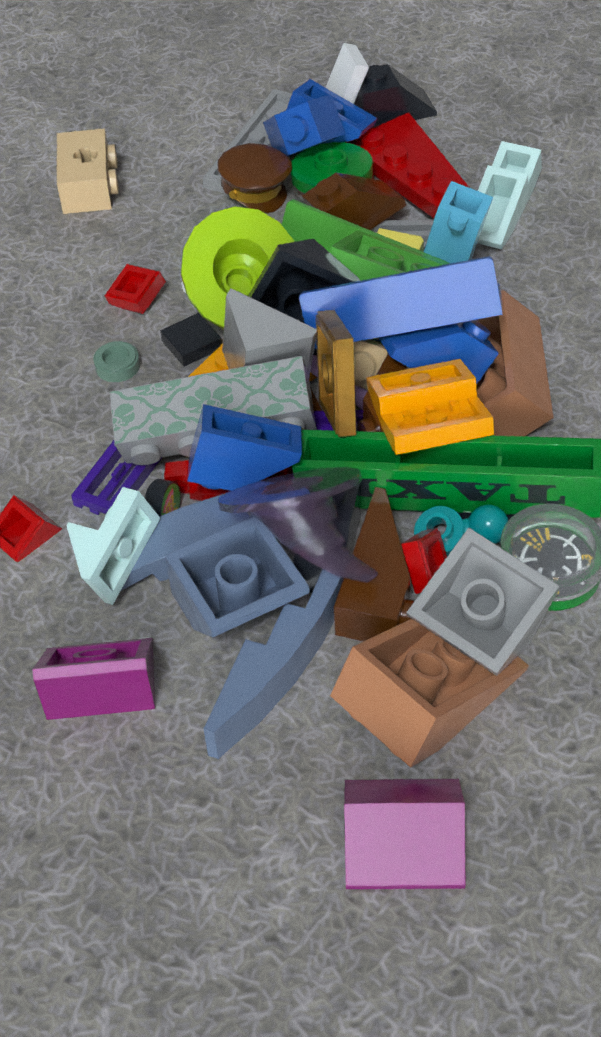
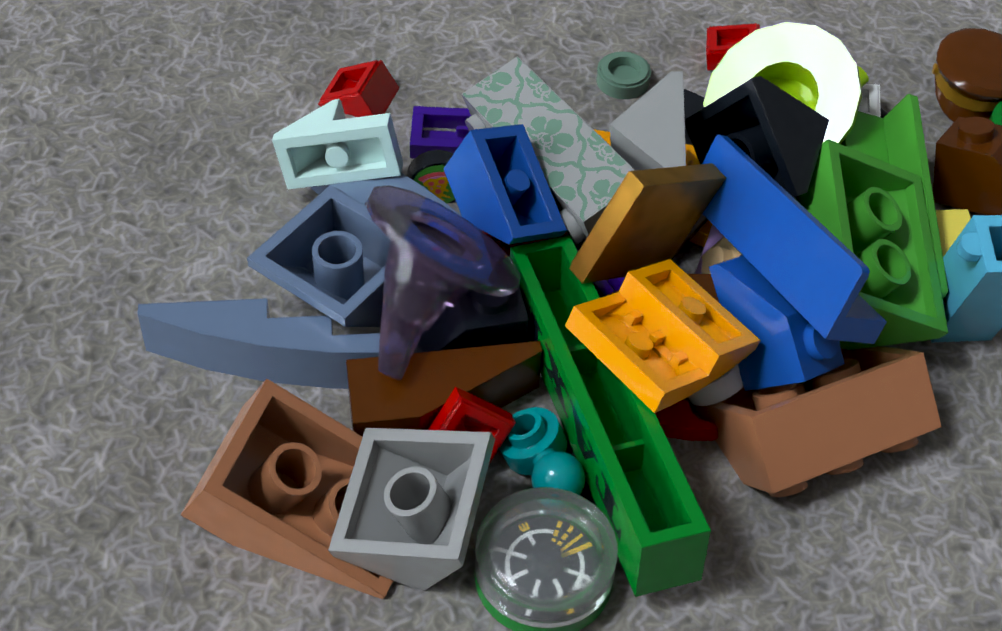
camera: 60 degrees right, 0 degrees up
(96, 678) = (194, 207): magenta slope -> none
(404, 834) = (104, 536): slope -> none

